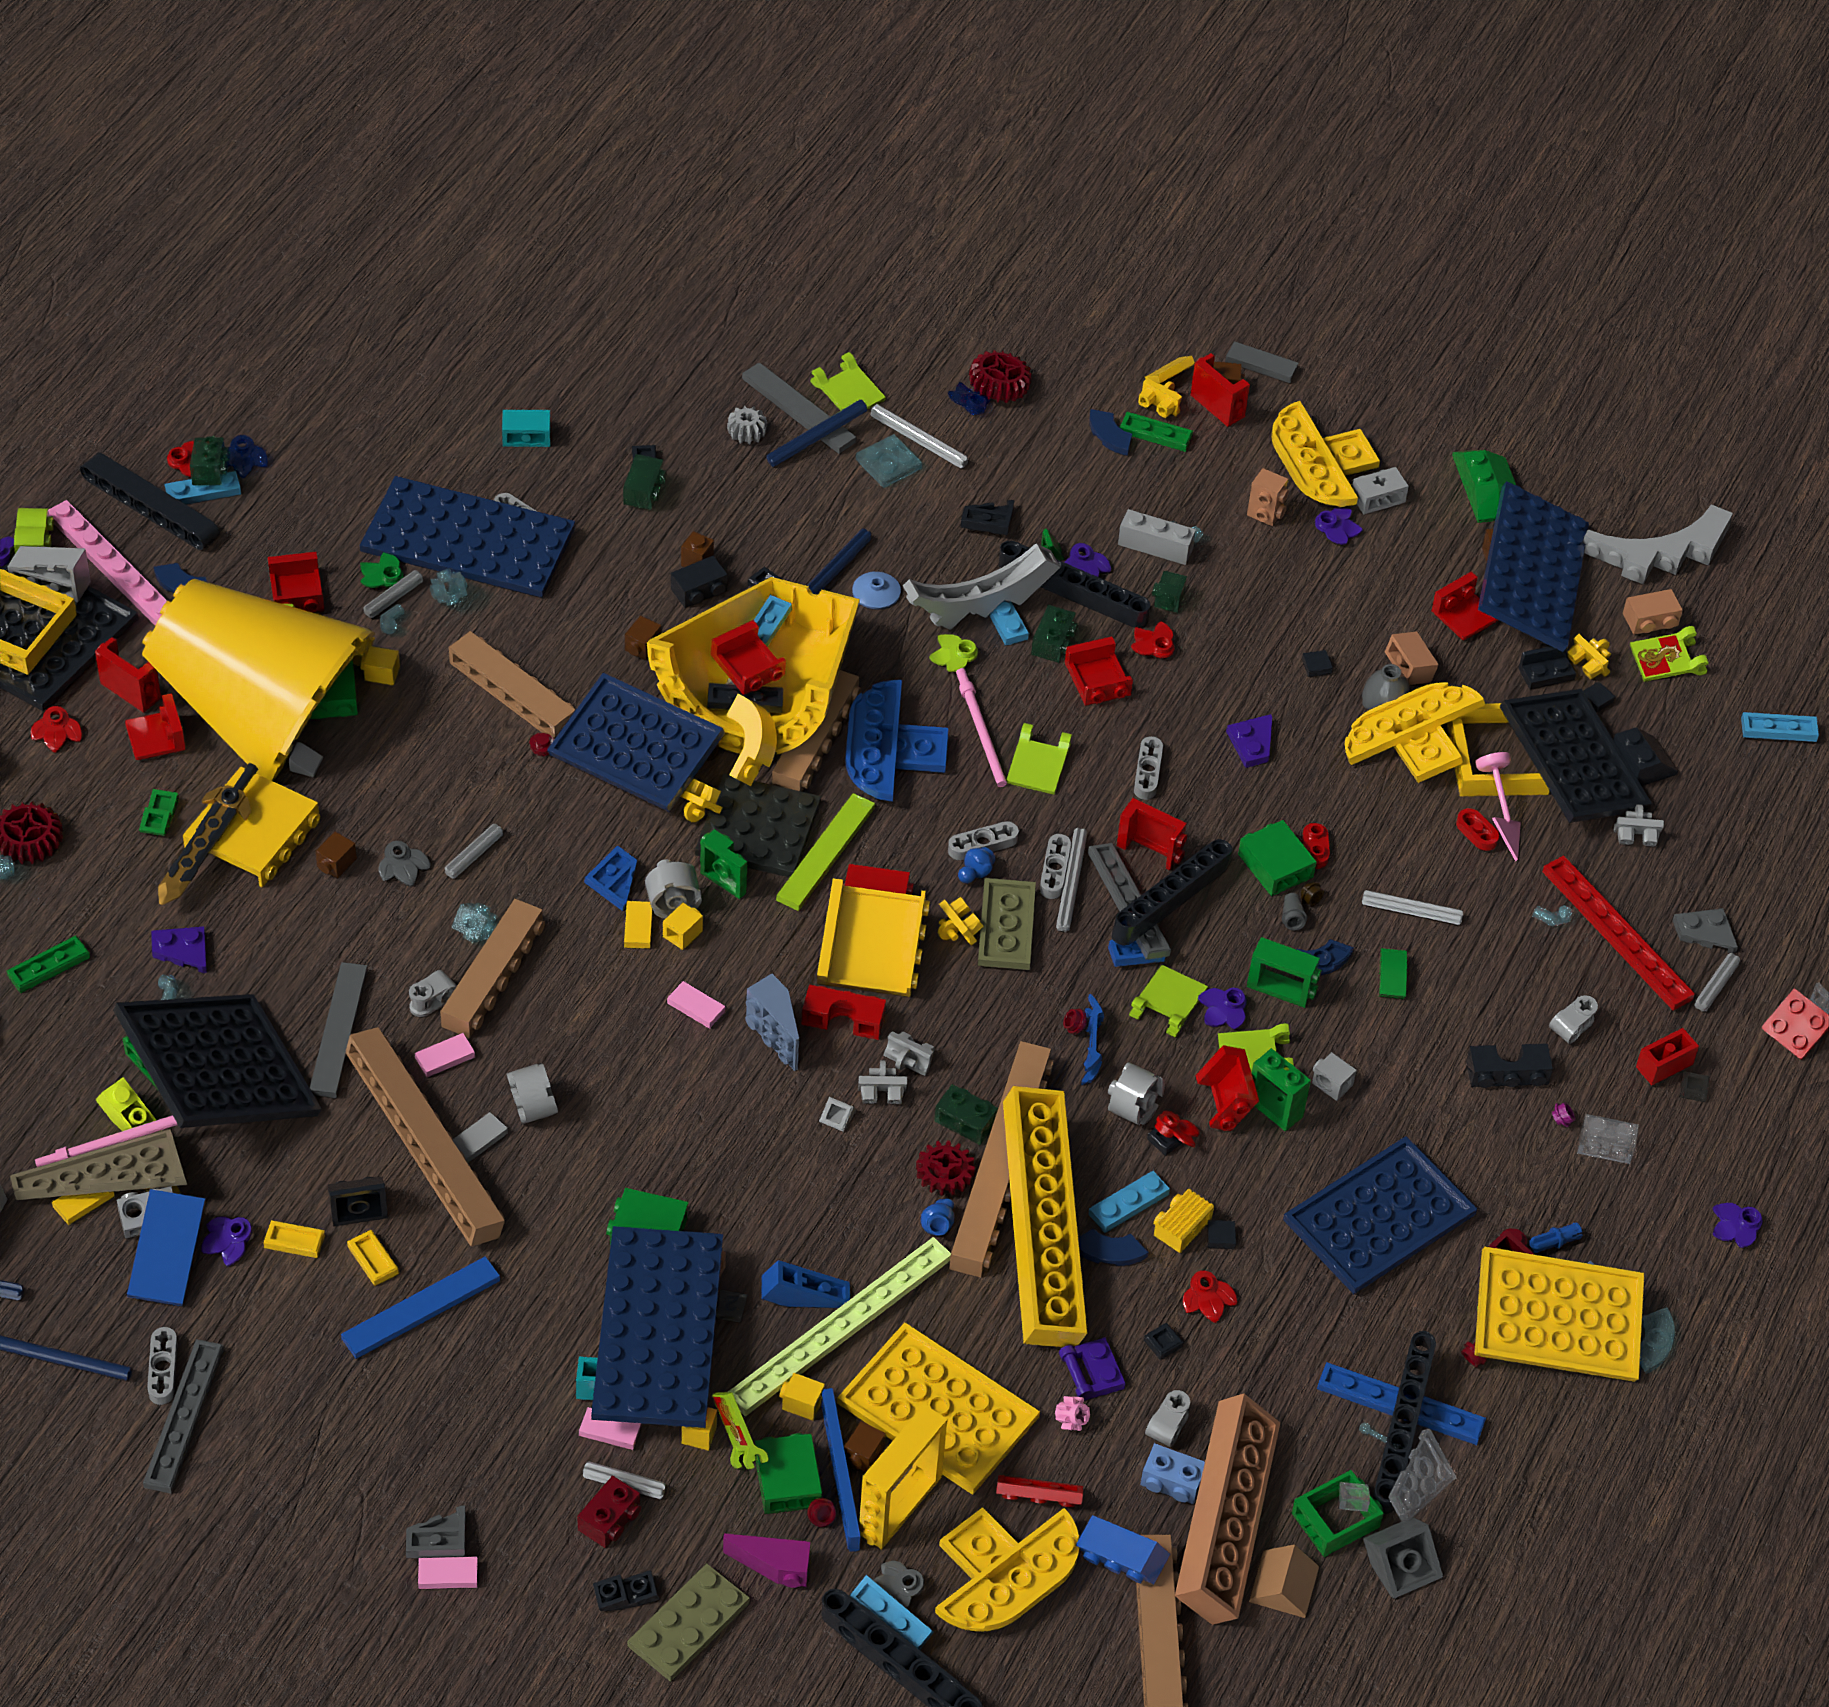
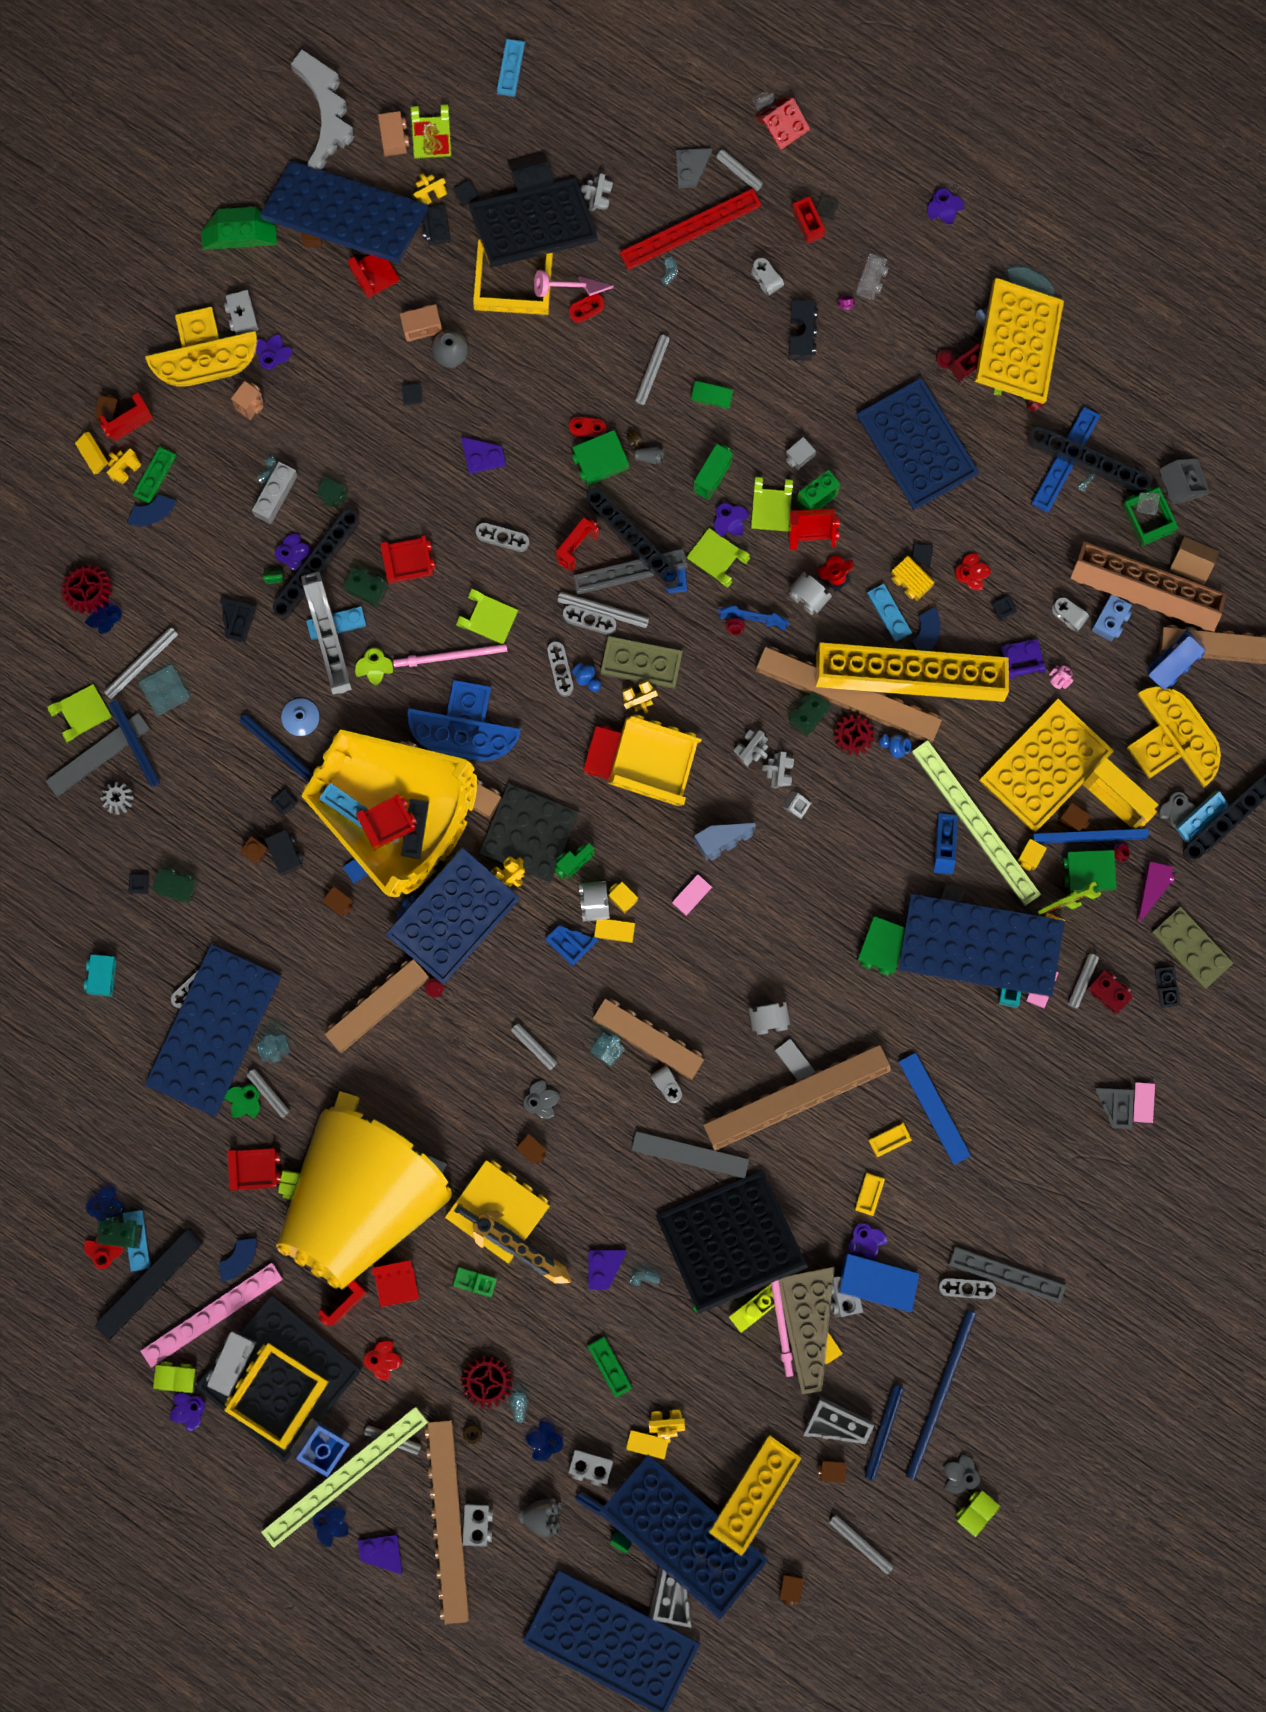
camera: 80 degrees left, 30 degrees up
(357, 1201) = (846, 1147): black slope -> none
(387, 620) = (295, 1098): clear light blue arm -> none
(444, 1055) = (720, 1079): bright pink tile -> none
(759, 738) = (466, 820): yellow arch -> none
(825, 852) = (559, 785): lime tile -> none
(826, 1003) = (715, 773): red arch -> none
(1039, 1491) = (1116, 707): red plate -> none
(1154, 643) = (374, 513): red plate -> none
(1262, 362) = (87, 378): dark grey tile -> none
(1331, 955) = (693, 444): dark blue tile -> none
(1414, 728) = (491, 335): yellow plate -> none
(1423, 1478) = (1130, 452): clear wing -> none
(1556, 1237) = (946, 329): blue axle -> none

